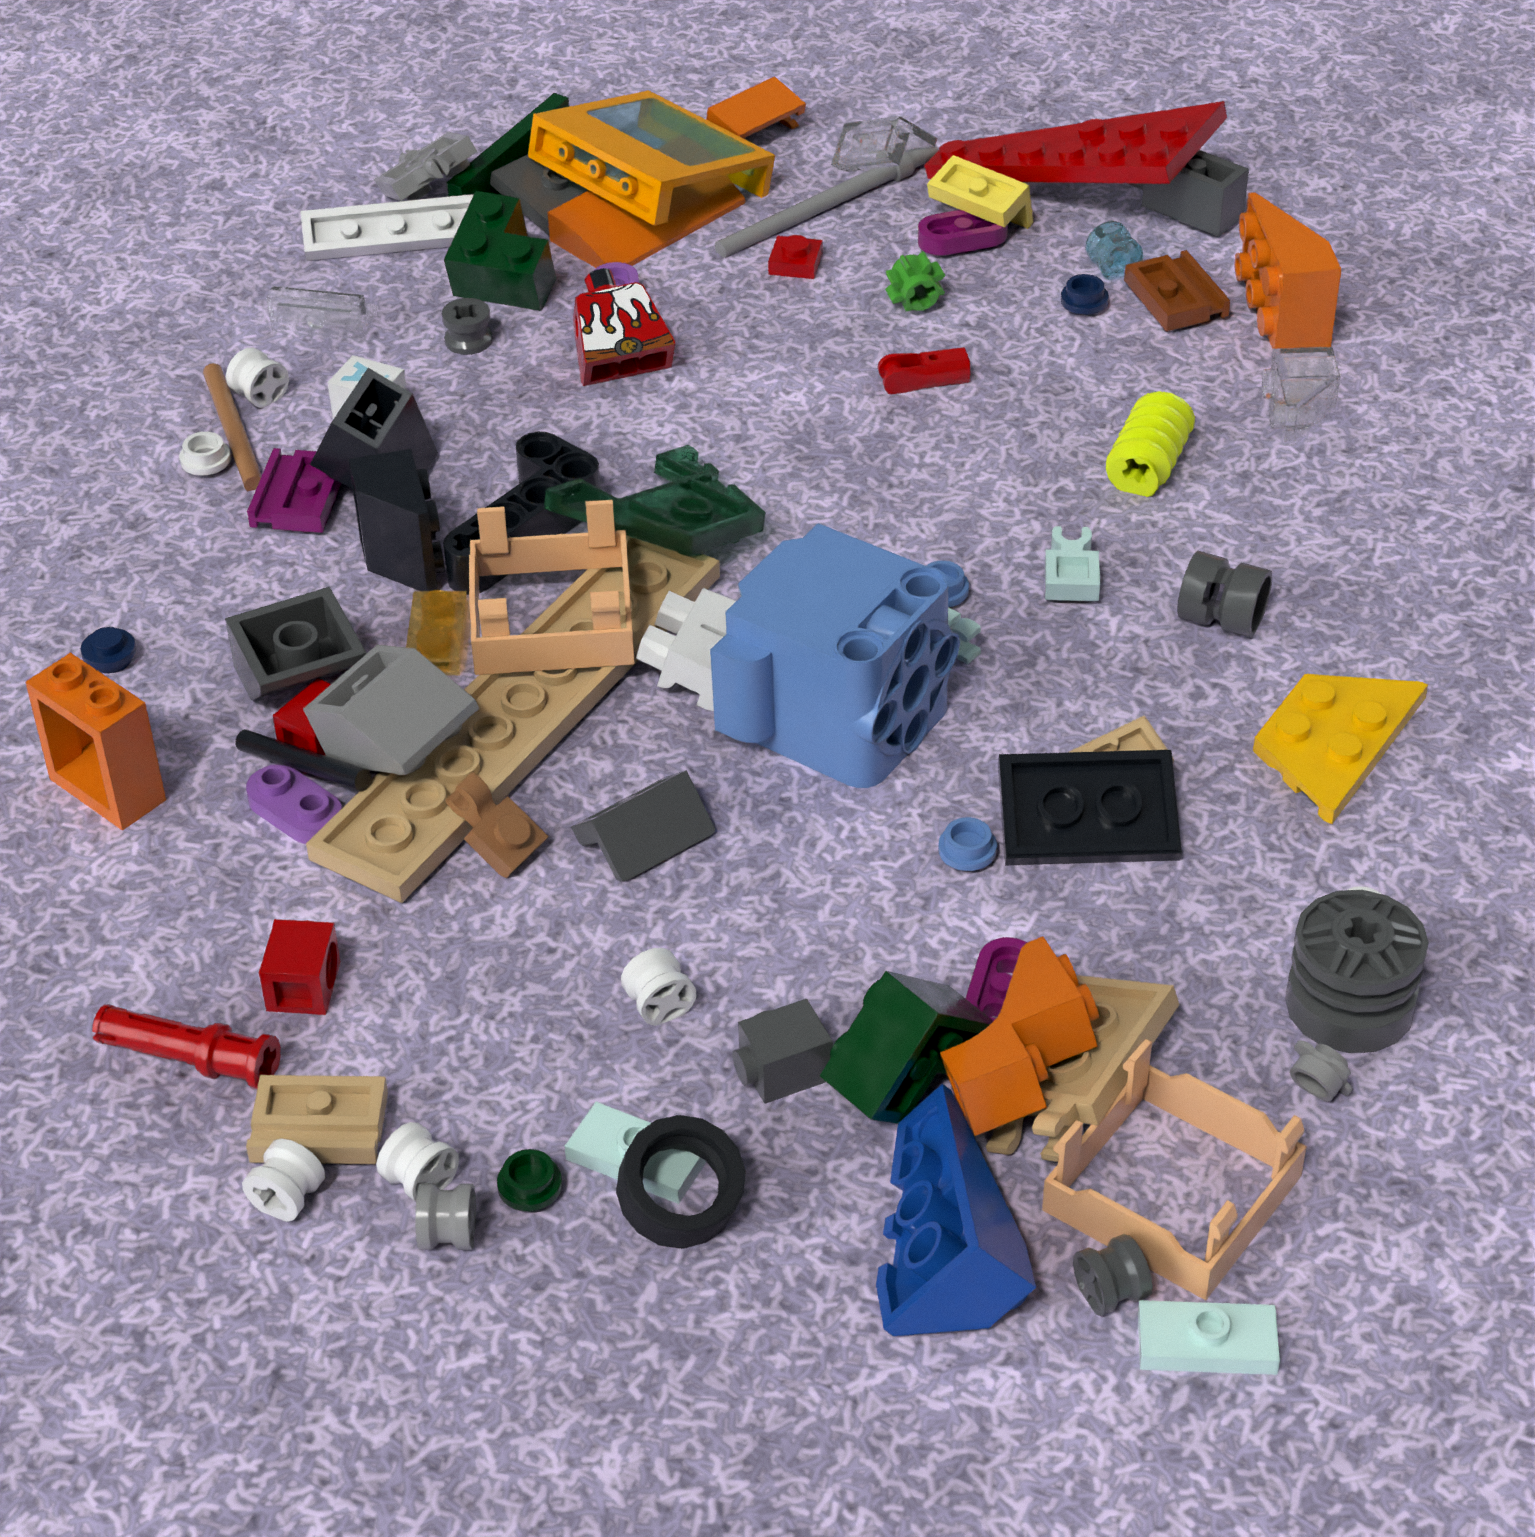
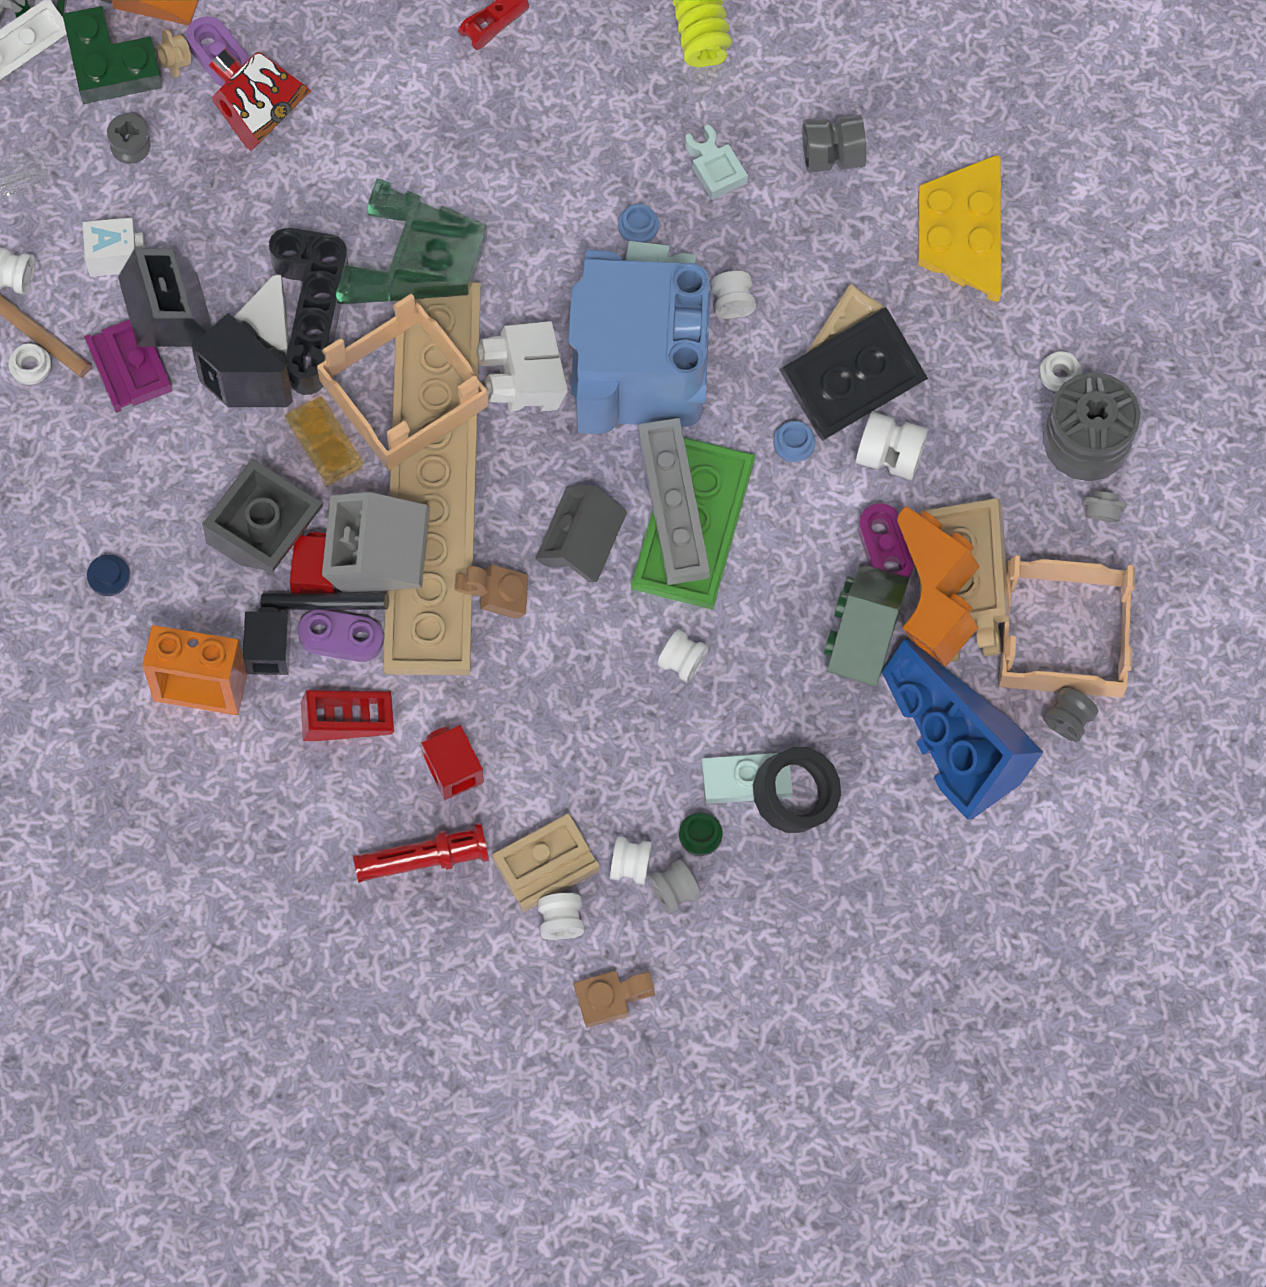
camera: 35 degrees left, 25 degrees up
(191, 876) = (330, 730): none -> red slope
(205, 768) = (266, 642): none -> black brick
(267, 1298) = (605, 998): none -> medium nougat plate
(462, 493) = (268, 315): none -> white slope
(570, 280) = (173, 53): none -> tan plate
(766, 830) = (673, 501): none -> light grey plate
(782, 1050) = (789, 662): dark grey brick -> none
(783, 874) = (719, 486): none -> bright green tile
(999, 681) = (733, 294): none -> white wheel
(1081, 890) = (891, 446): none -> white wheel
(1208, 1337) = (1140, 723): light aqua plate -> none

